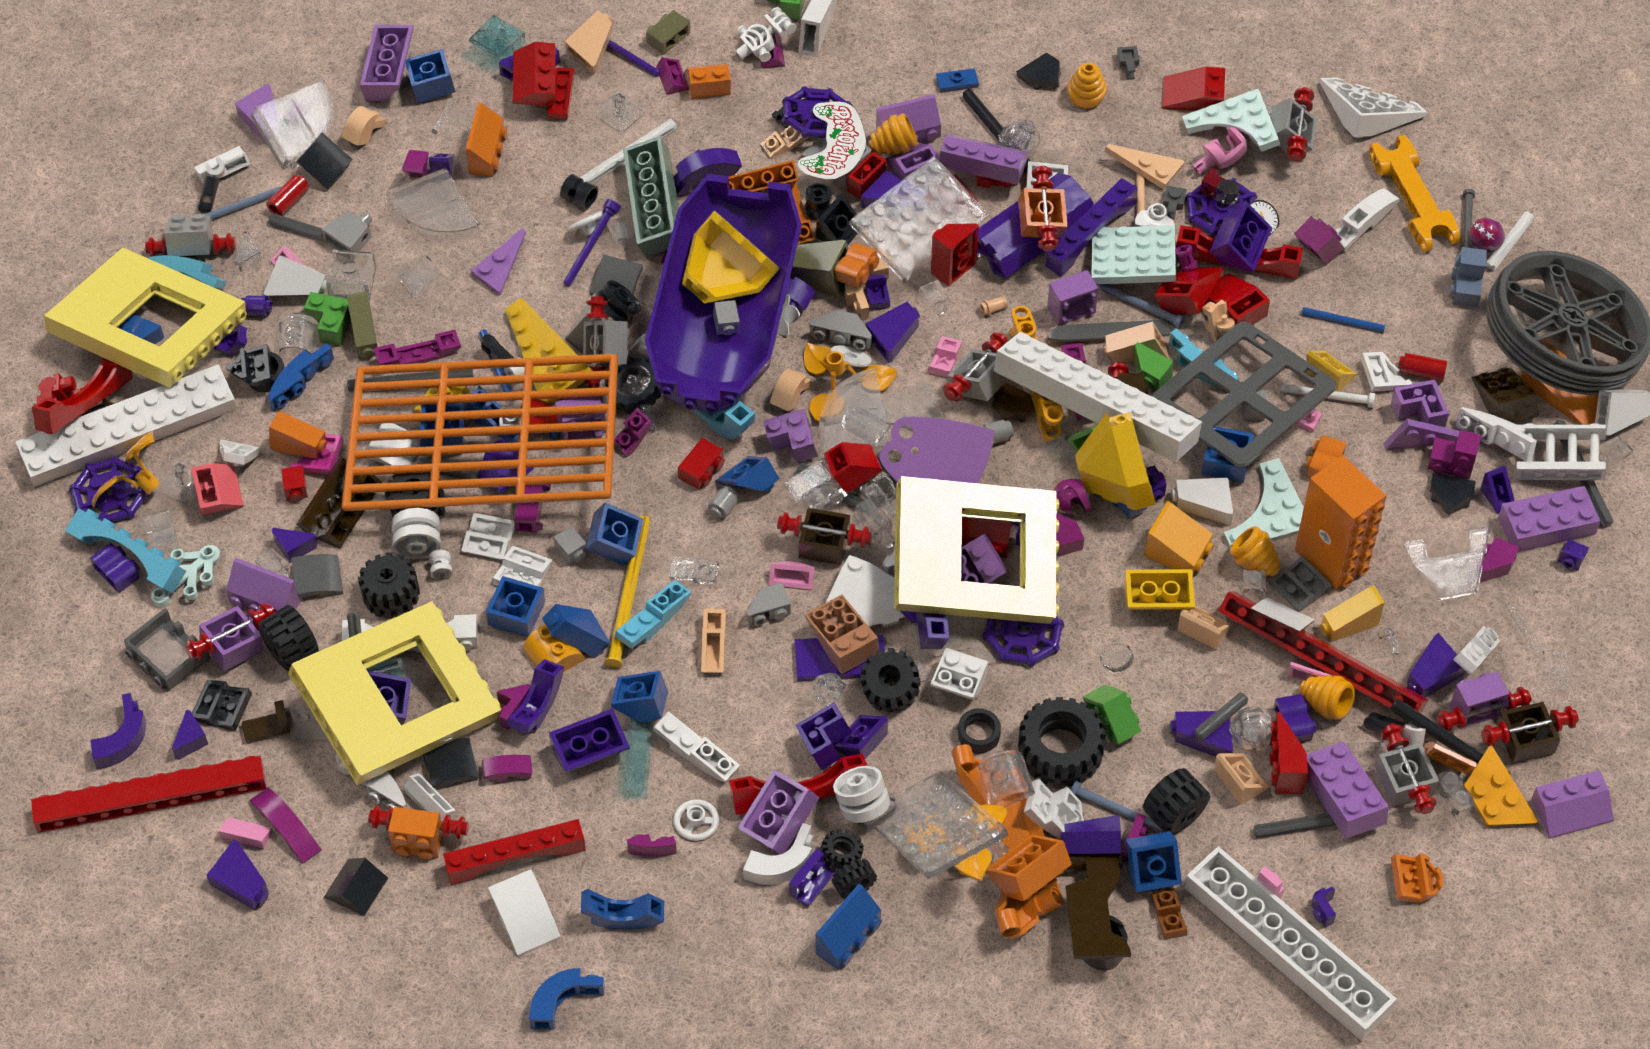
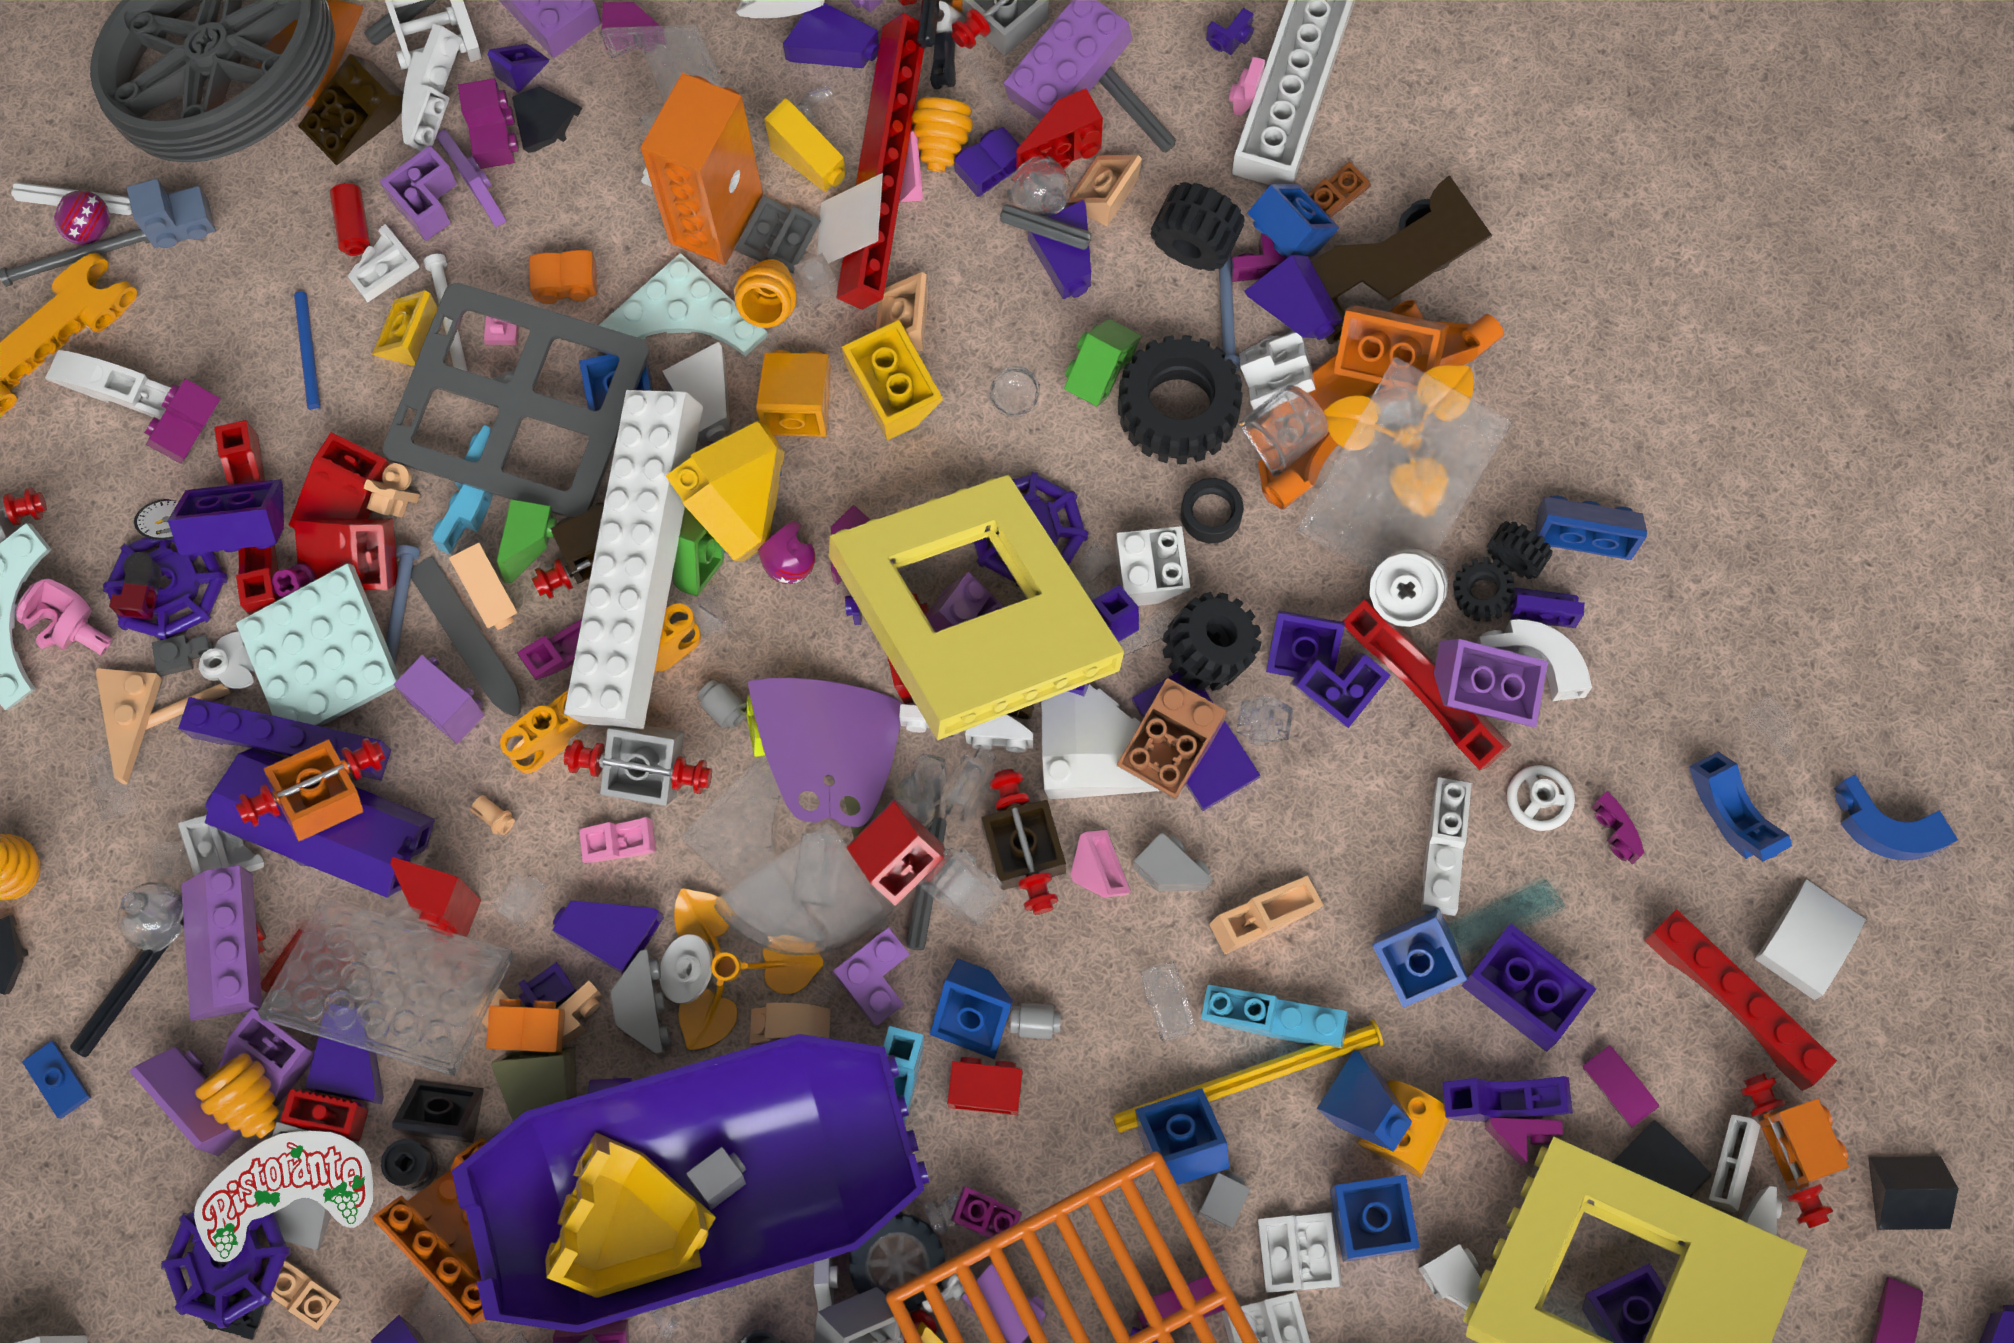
camera: 115 degrees left, 15 degrees up
(1012, 403) = (668, 704): dark brown slope -> none

